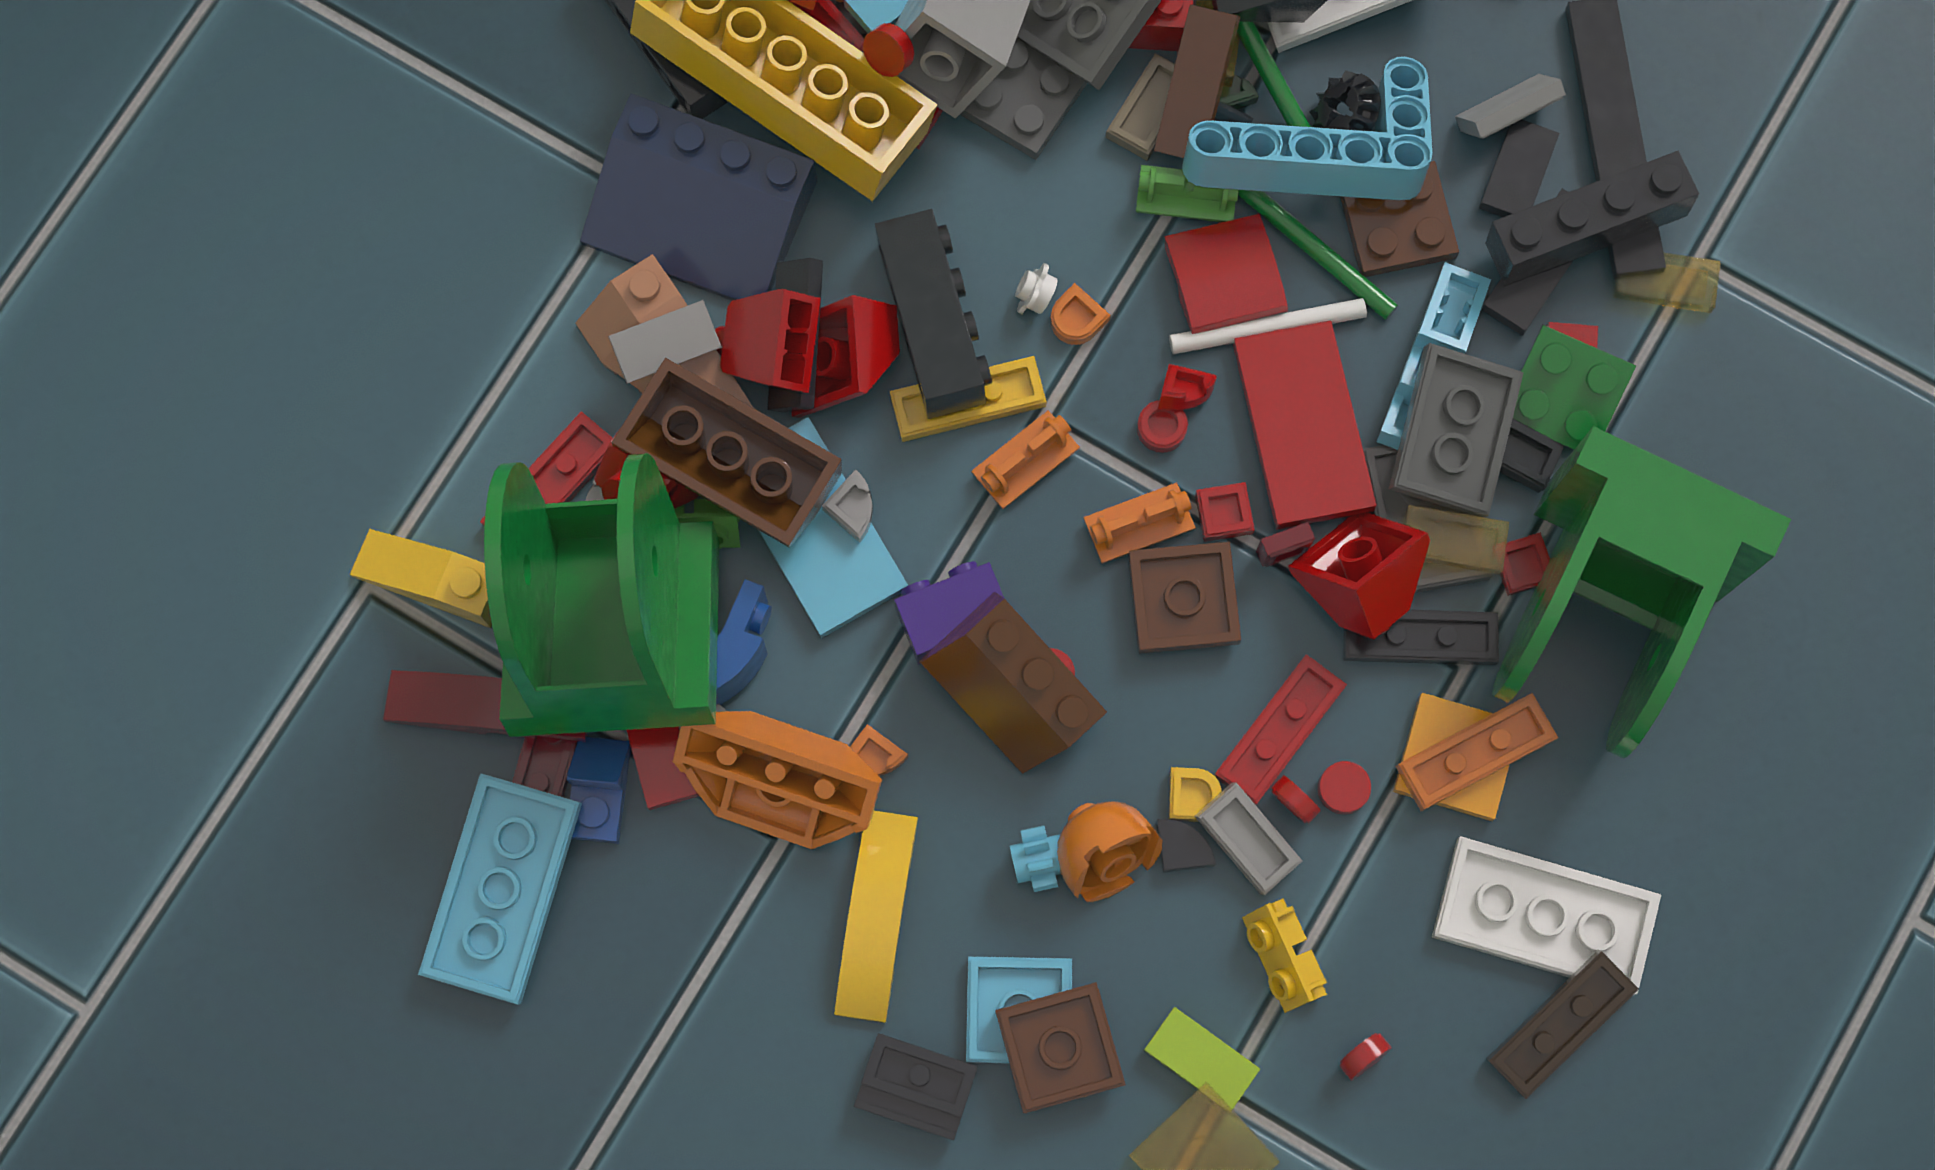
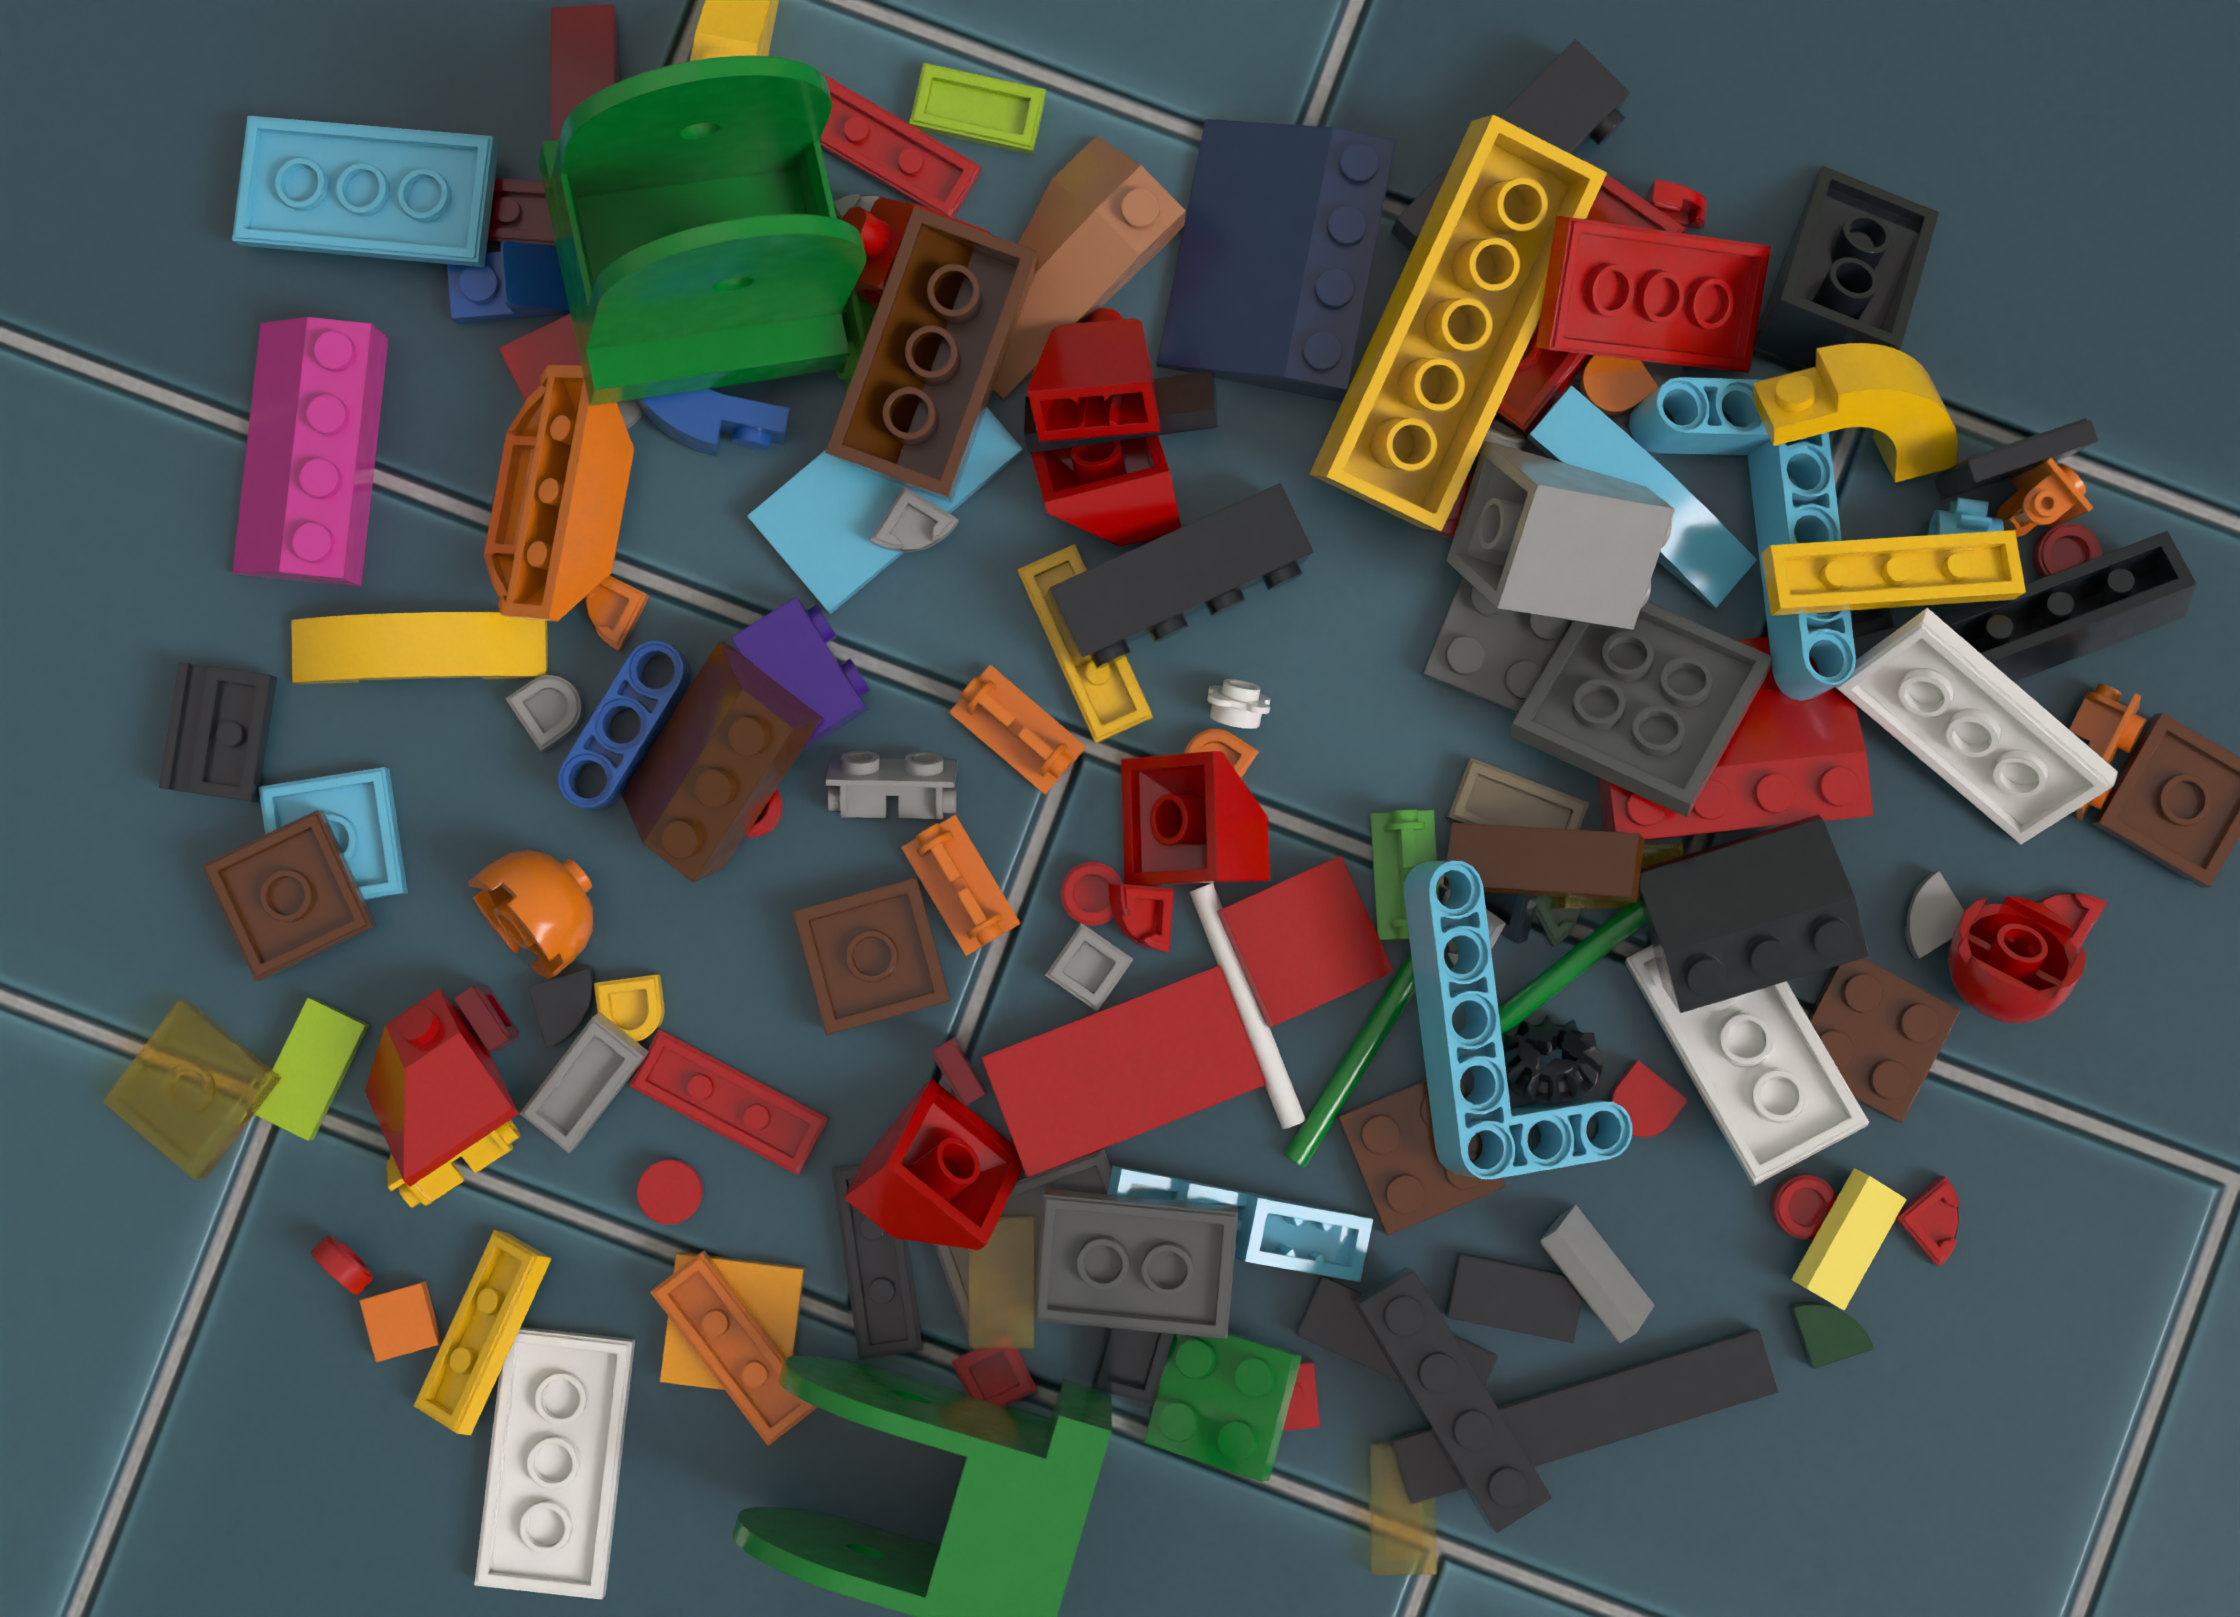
camera: 75 degrees right, 10 degrees up
(535, 407) = (978, 109): none -> lime tile
(673, 335) = (1072, 248): light grey tile -> none
(700, 975) = (311, 451): none -> dark pink slope
(888, 50) = (1494, 453): red tile -> none
(944, 819) = (548, 709): none -> light grey tile
(962, 732) = (596, 740): none -> blue beam
(1036, 858) = (511, 827): medium azure gear -> none
(1054, 537) = (863, 781): none -> light grey hinge
(1120, 340) = (1191, 822): none -> red slope
(1184, 904) = (487, 1017): none -> dark red tile
(1218, 438) = (1089, 967): none -> light grey tile
(1224, 512) = (994, 989): red tile -> none
(1236, 952) = (434, 1087): none -> red slope
(1295, 800) = (640, 1133): red tile -> none
(1380, 49) = (1647, 1100): none -> red tile
(1417, 1020) = (400, 1321): none -> orange tile
(1436, 953) = (482, 1332): none -> yellow tile
(1562, 1023) = (422, 1498): dark brown tile -> none

